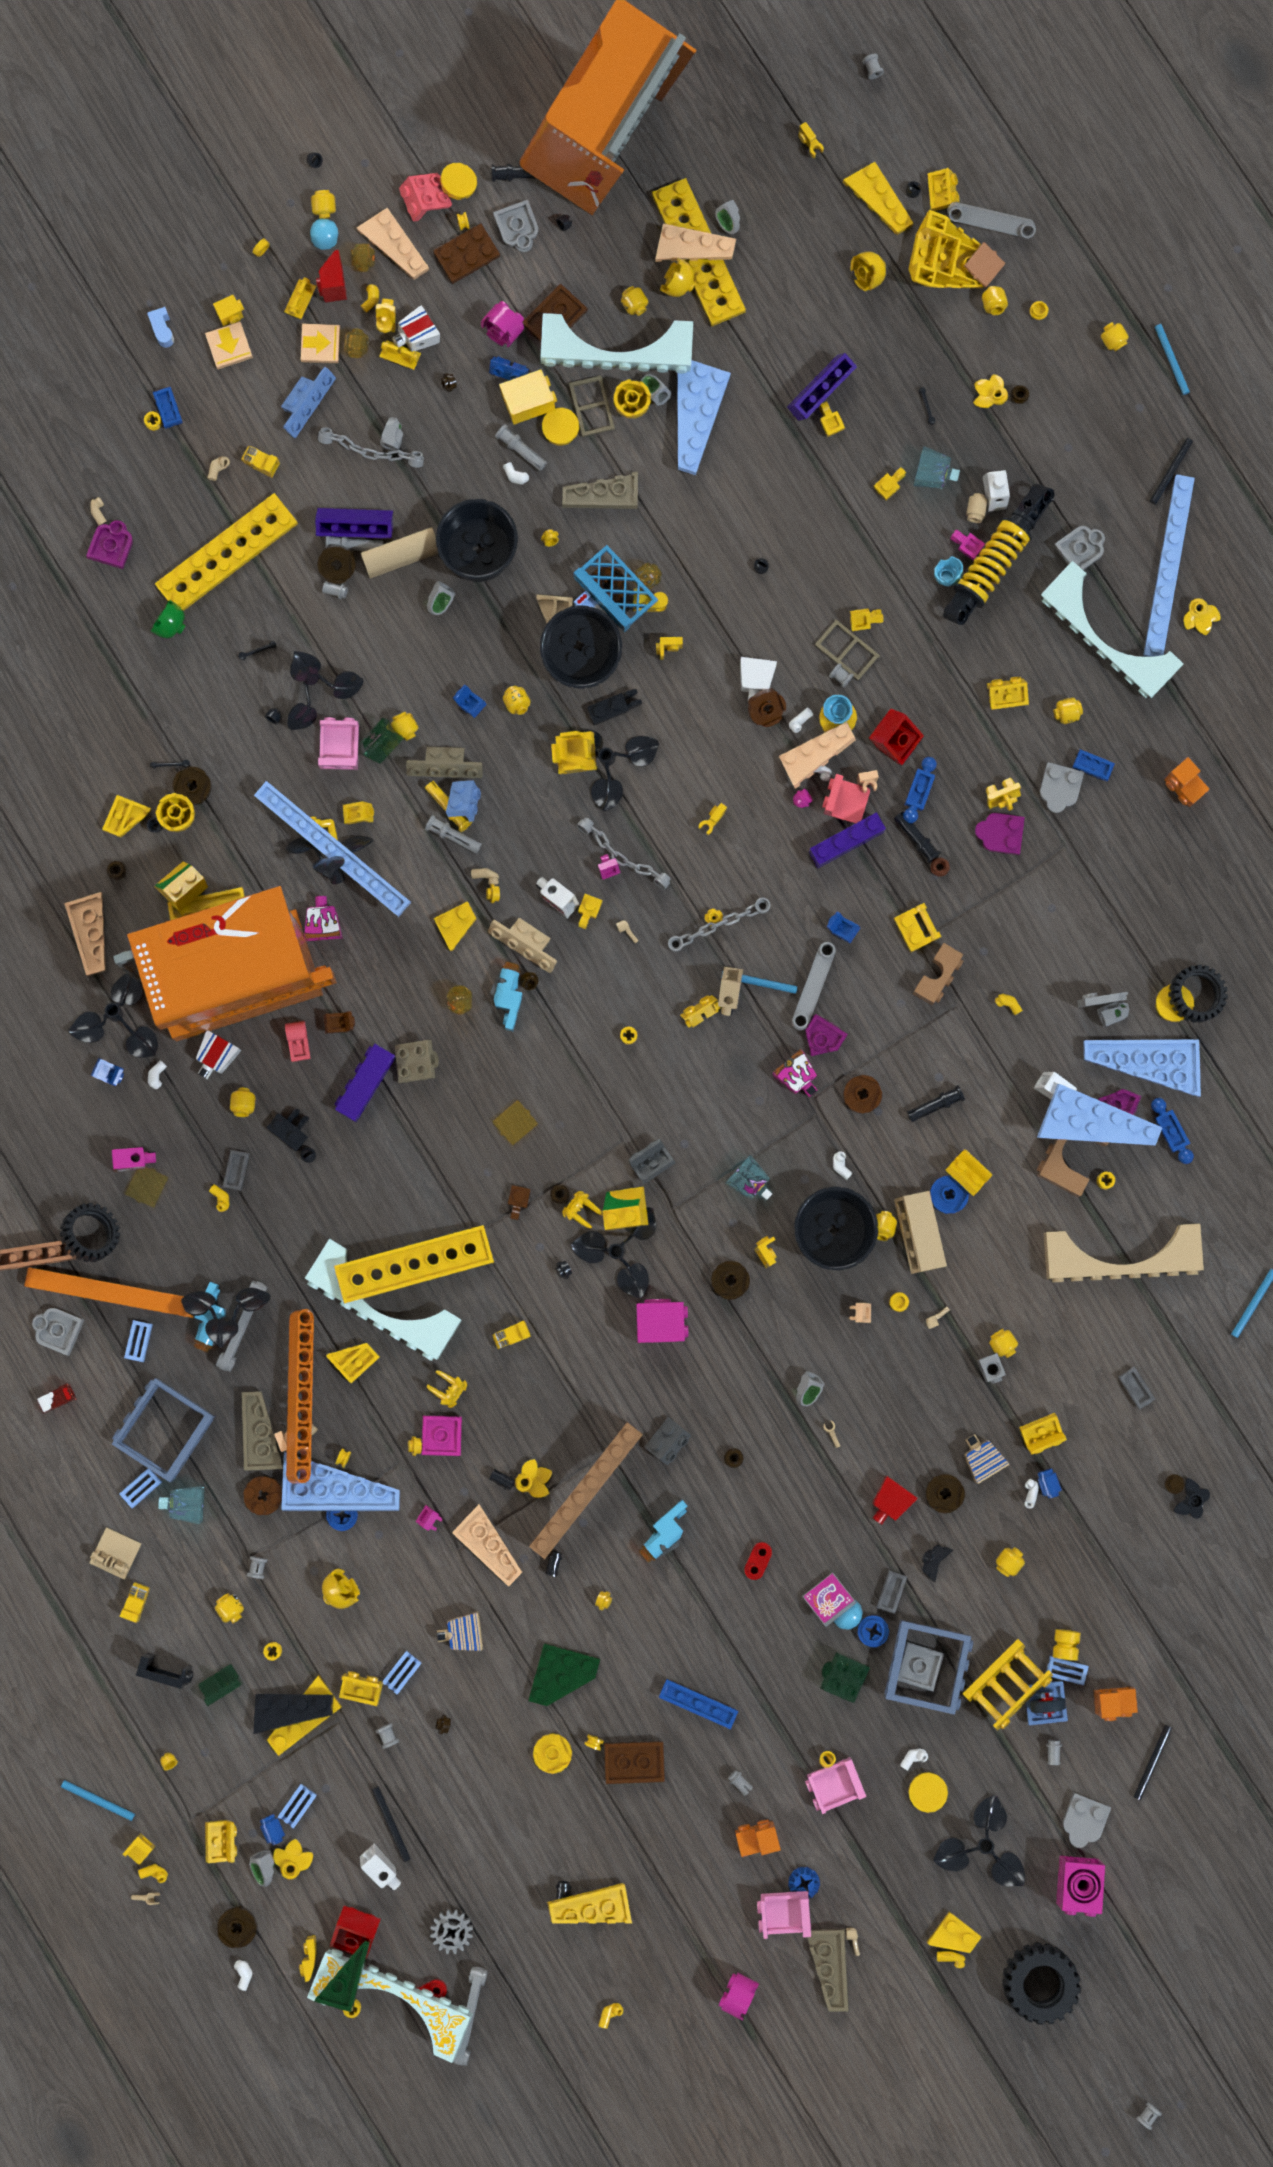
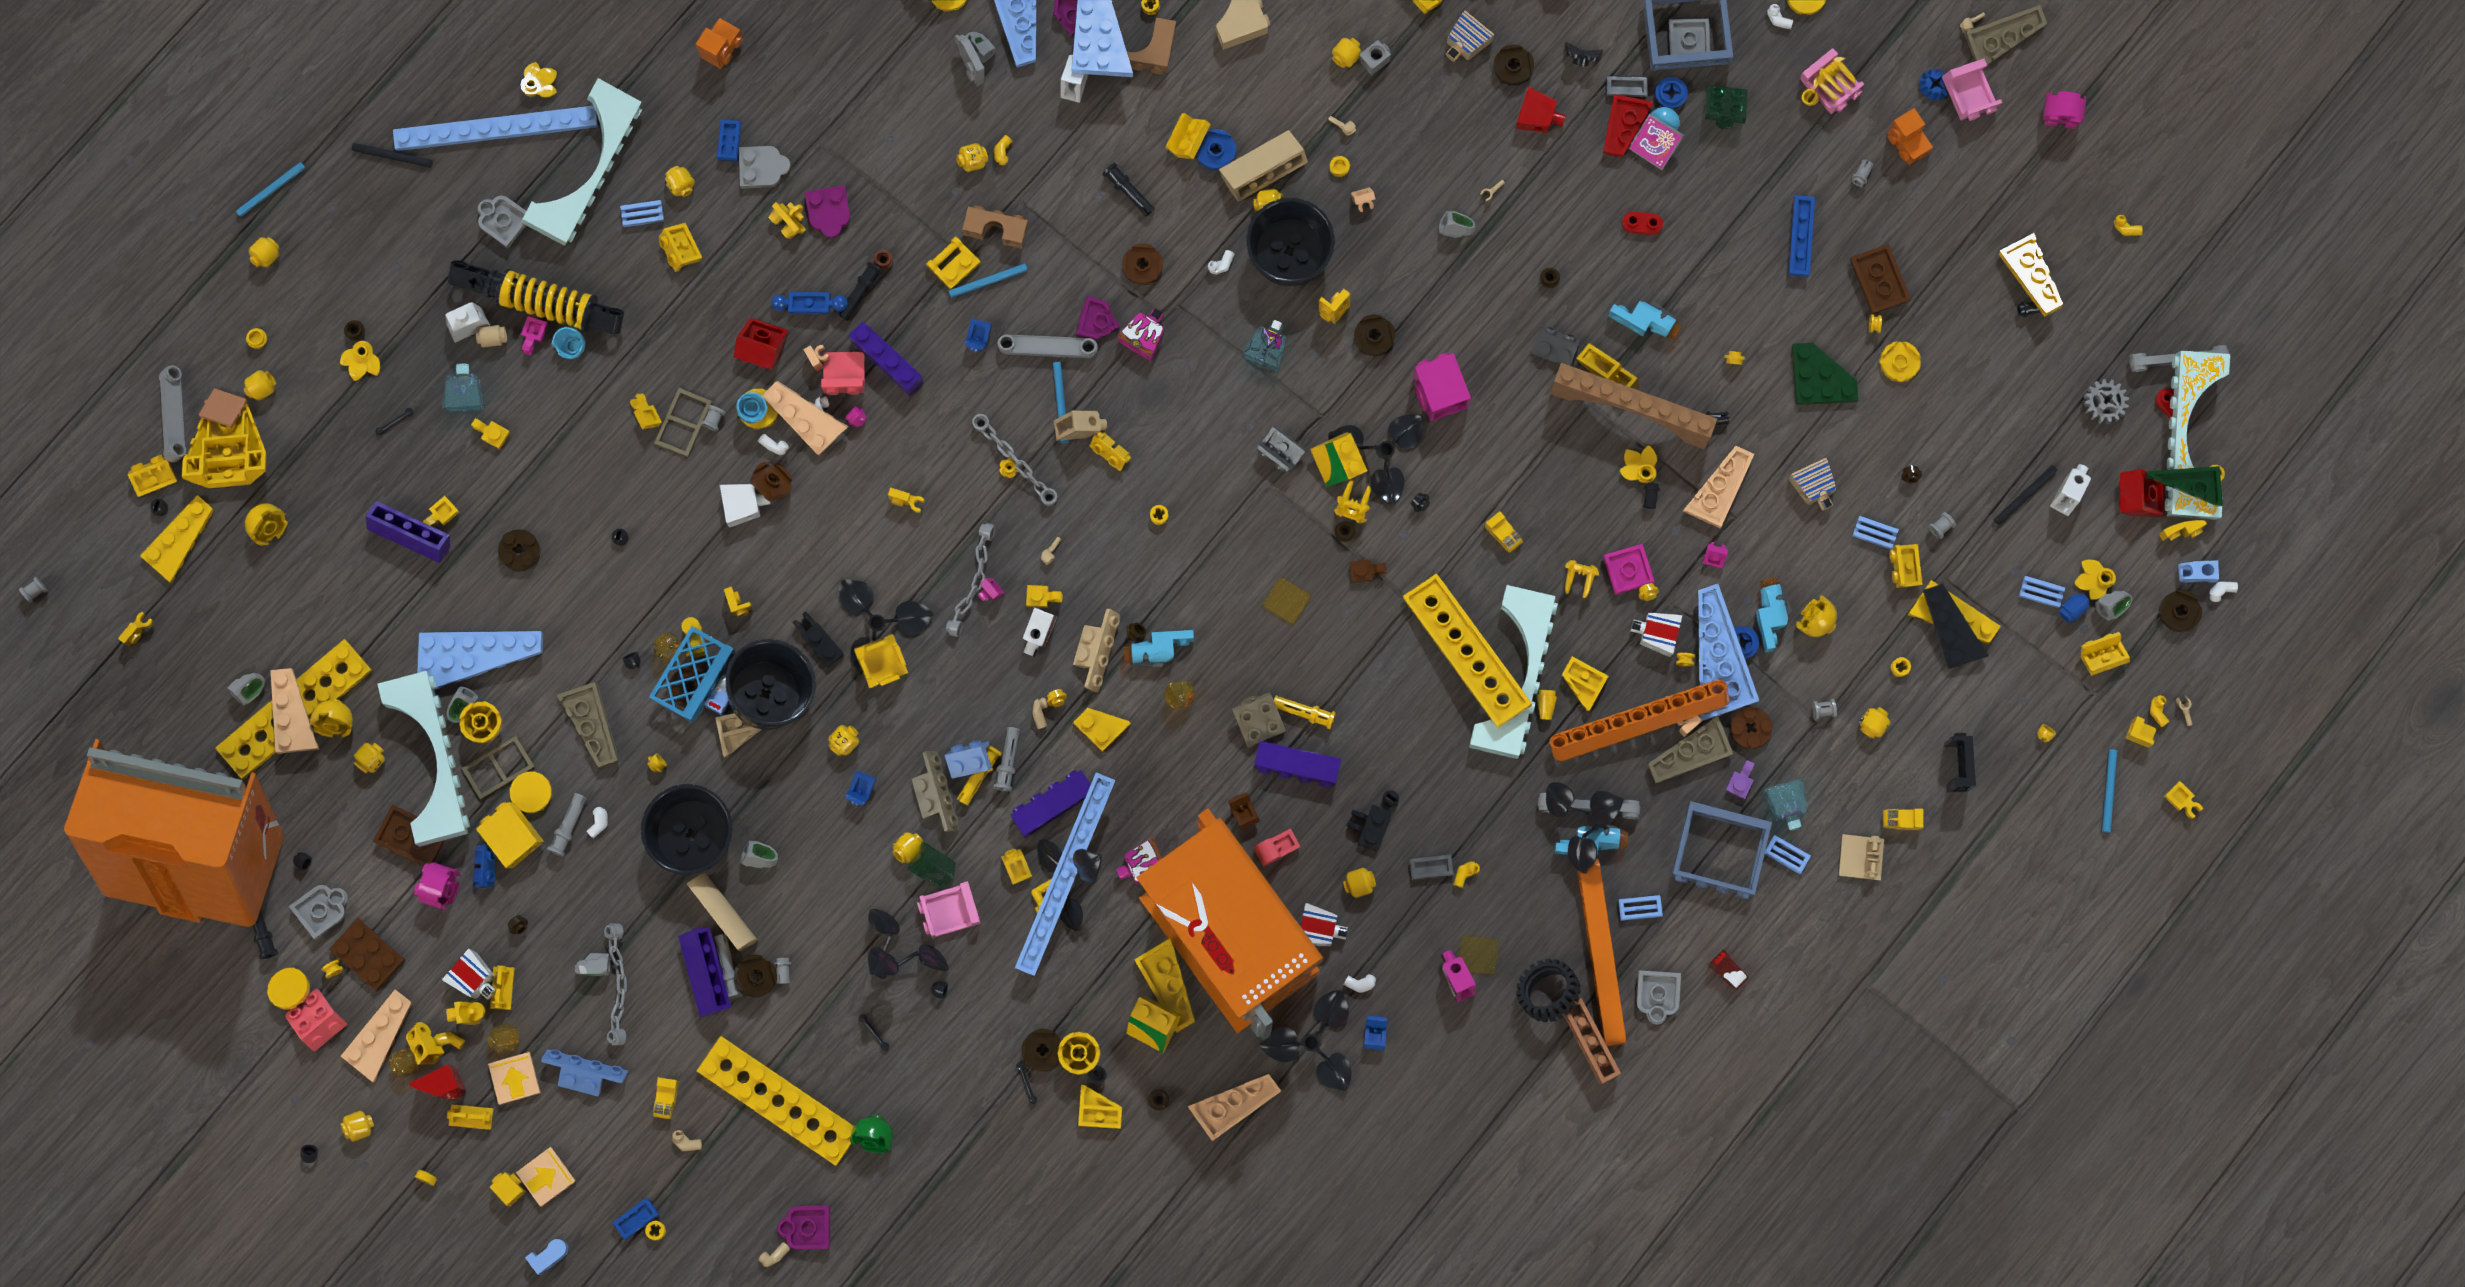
camera: 105 degrees left, 5 degrees down
(67, 1863) = (2181, 798): none -> yellow plate
(217, 1468) = (1739, 782): none -> medium lavender plate
(220, 1684) = (1953, 707): clear green panel -> none
(266, 1958) = (2199, 571): none -> light blue leg
(324, 234) = (389, 1115): medium azure hair -> none
(345, 1320) = (1546, 703): none -> yellow cone
(358, 1554) = (1774, 613): none -> medium azure plate
(372, 275) = (423, 1045): none -> yellow leg
(375, 1442) = (1658, 632): none -> torso
(401, 860) = (1051, 804): none -> dark purple brick
(404, 1111) = (1313, 717): none -> yellow pin
(629, 1480) = (1606, 367): none -> yellow slope
(647, 543) = (631, 659): none -> black hinge
(774, 467) = (511, 541): none -> dark brown plate
(833, 1778) = (1826, 76): none -> yellow piece
(857, 1576) = (1624, 122): none -> red wing
(891, 953) = (988, 280): none -> dark azure bar
(1009, 974) = (972, 157): none -> yellow head
(1056, 674) = (639, 206): none -> light blue tile

